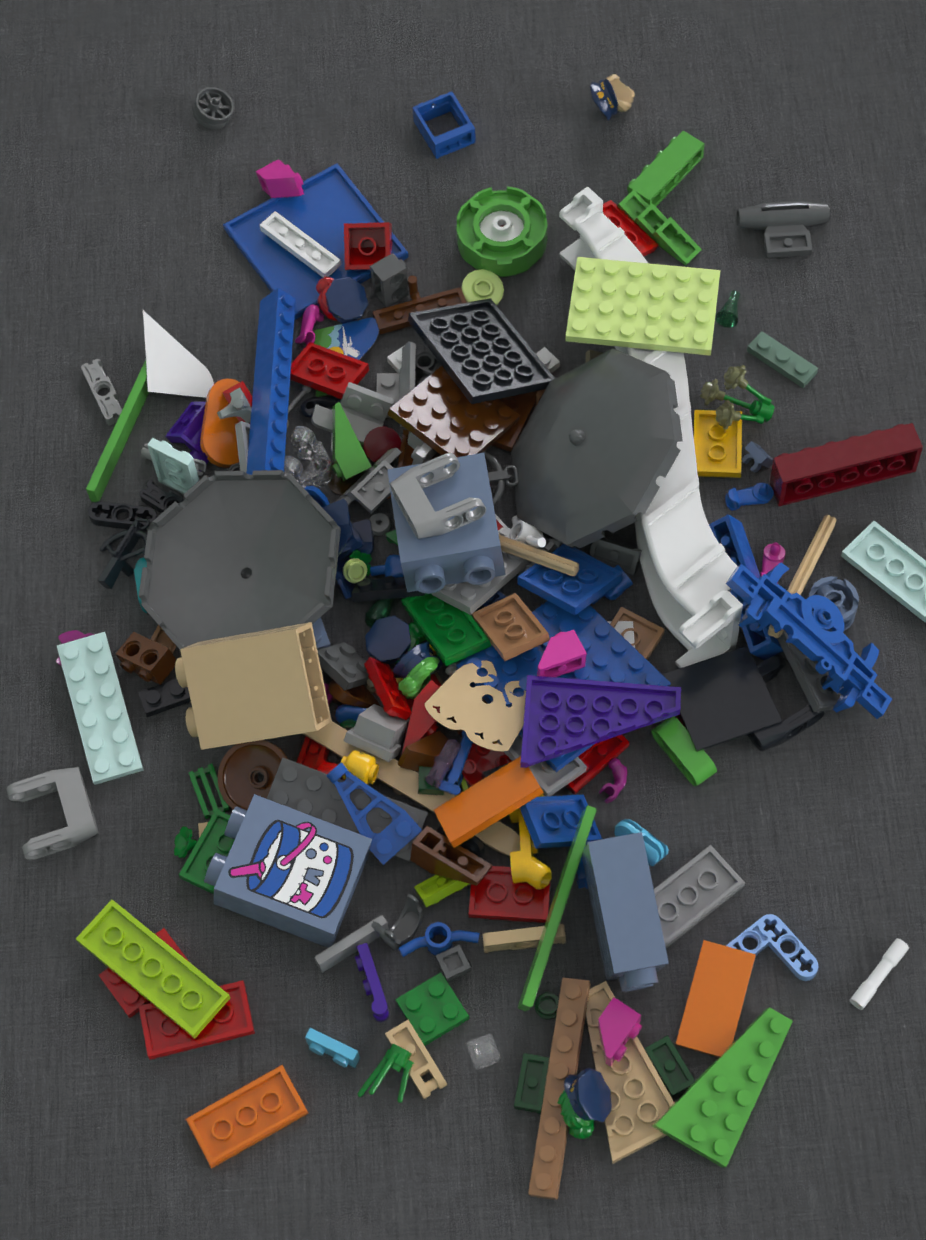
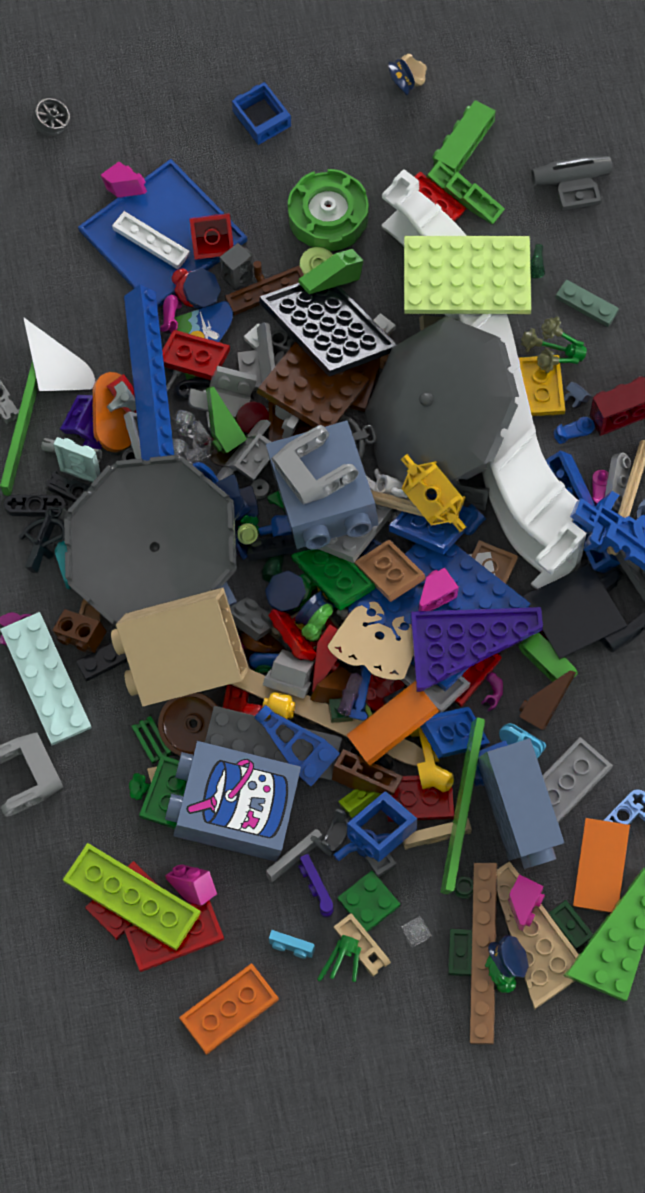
camera: 10 degrees left, 5 degrees up
(226, 962) = (192, 883): none -> dark pink slope
(474, 901) = (396, 812): none -> blue window
(498, 296) = (335, 271): none -> bright green slope
(586, 557) = (448, 500): none -> yellow plate
(672, 800) = (542, 705): none -> reddish brown slope
(793, 552) = (618, 477): none -> light grey plate

